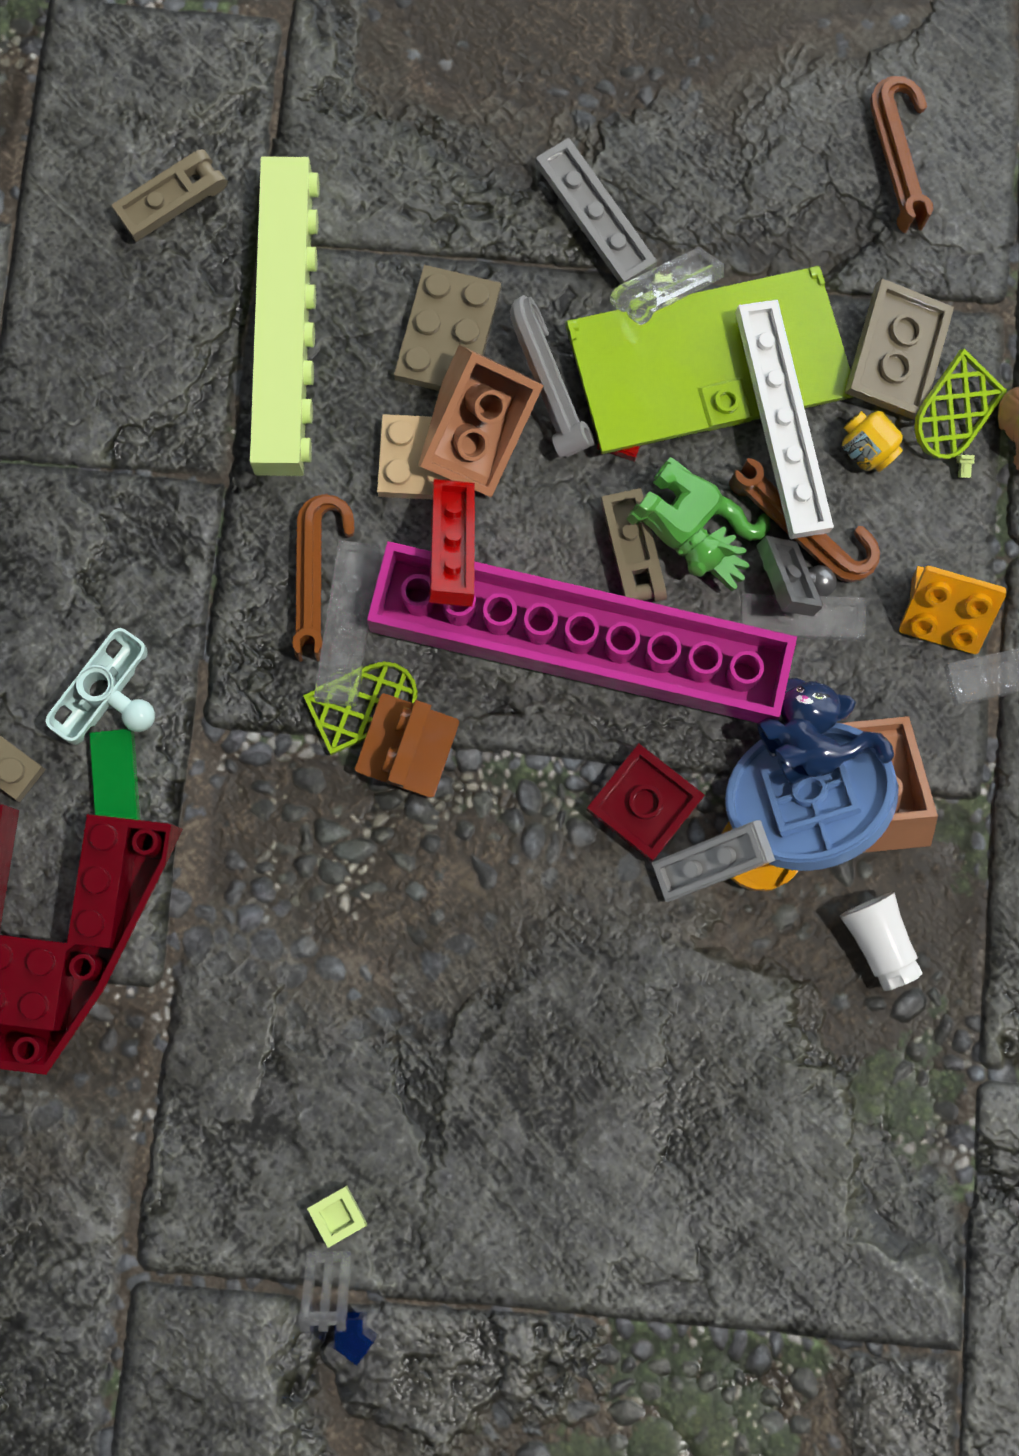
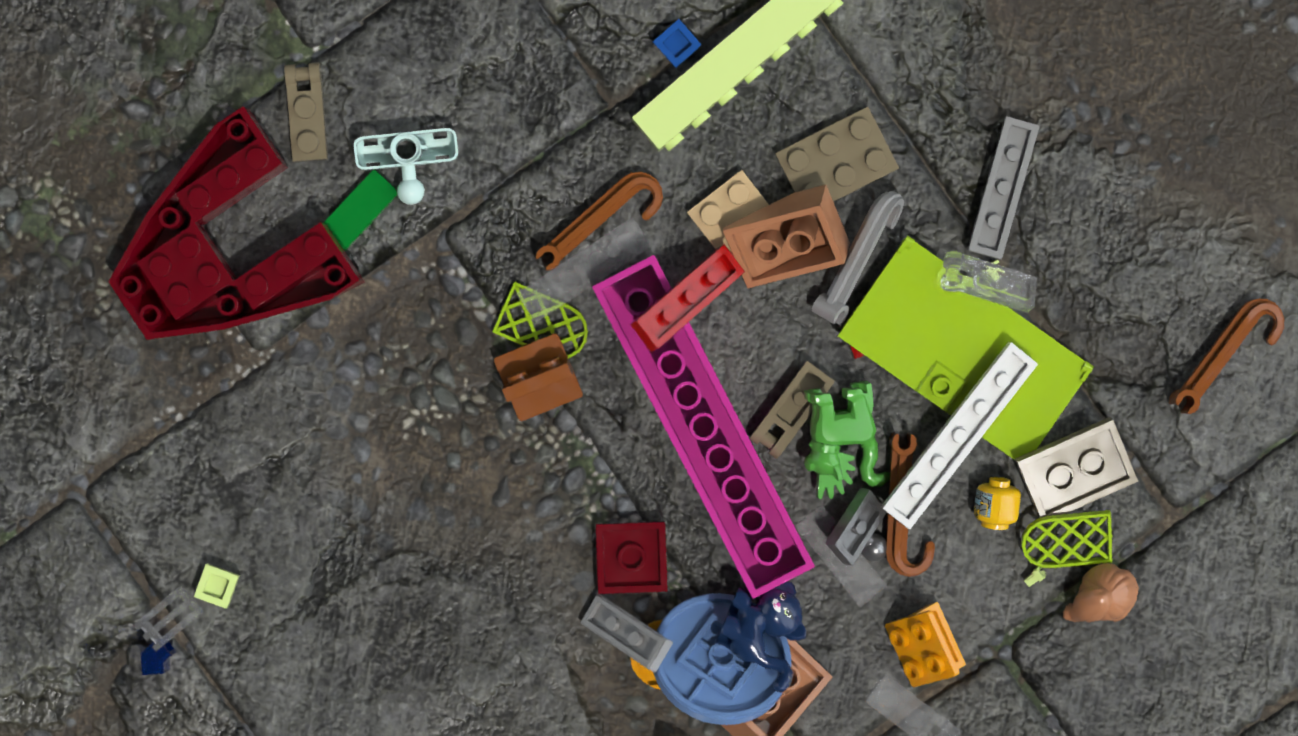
camera: 45 degrees right, 10 degrees up
(223, 377) = (677, 43): none -> blue plate

